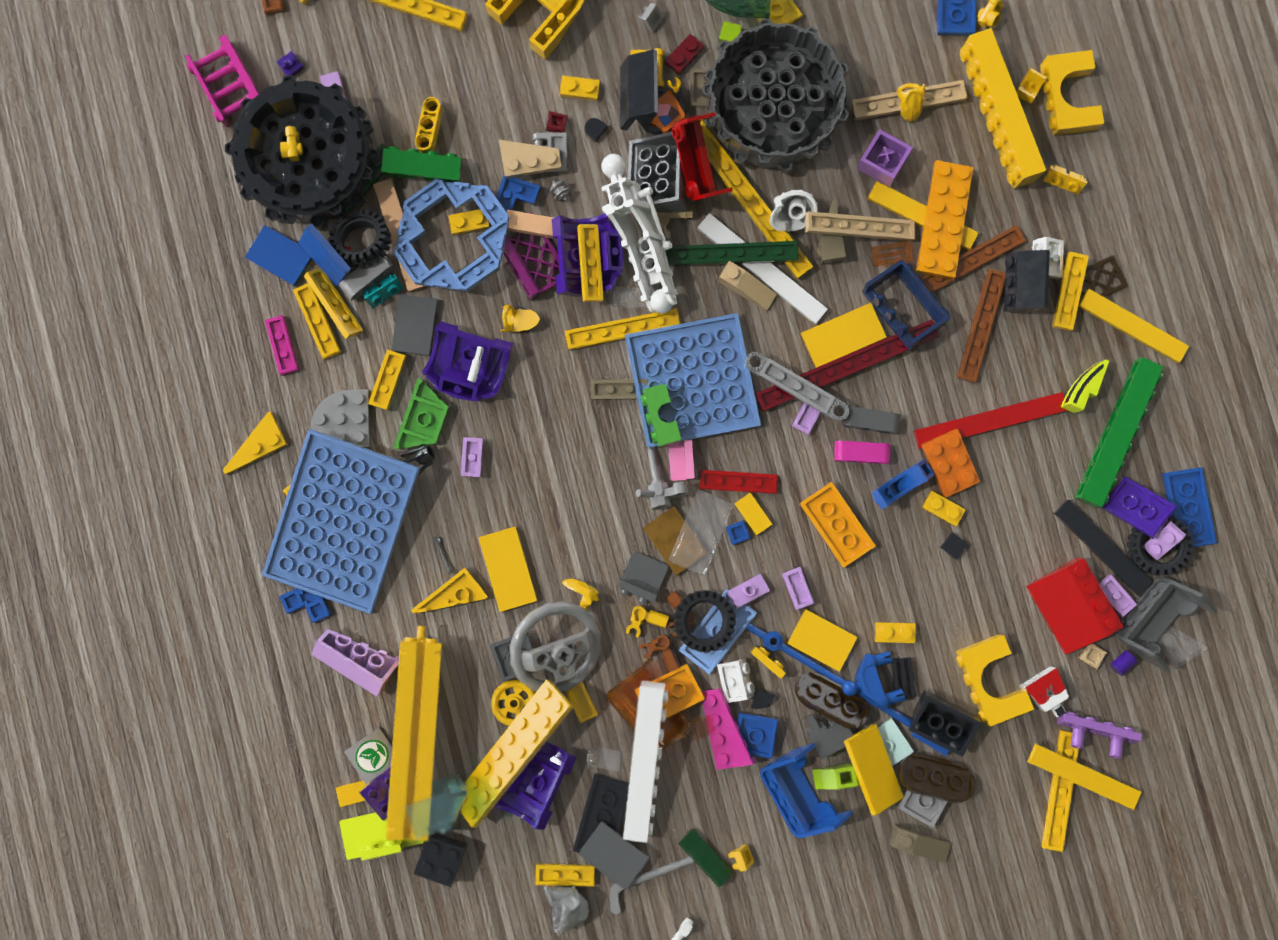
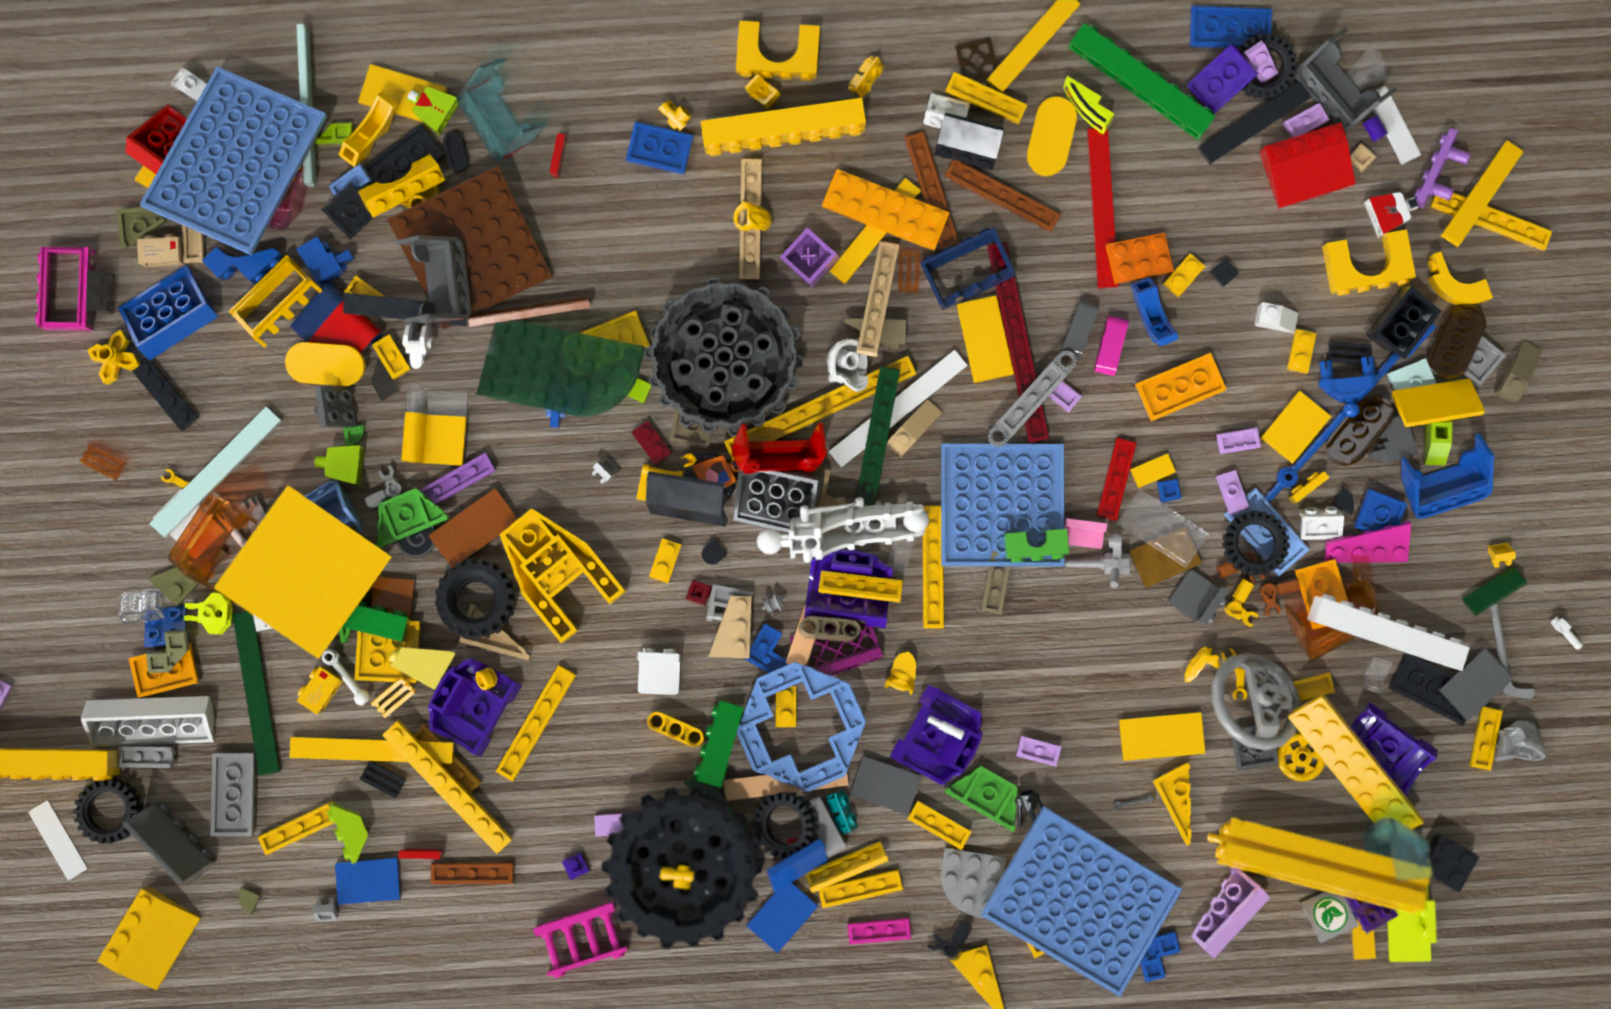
camera: 75 degrees left, 0 degrees up
(275, 412) = (952, 950): none -> black bar
(478, 101) = (659, 672): none -> white bracket
(547, 232) = (820, 632): none -> dark tan beam
(570, 632) = (1240, 673): none -> yellow piece
(922, 602) = (1276, 317): none -> white slope
(984, 766) = (1452, 290): none -> yellow arch
(1047, 360) = (1051, 136): none -> yellow tile
(1127, 684) = (1398, 132): none -> white sticker

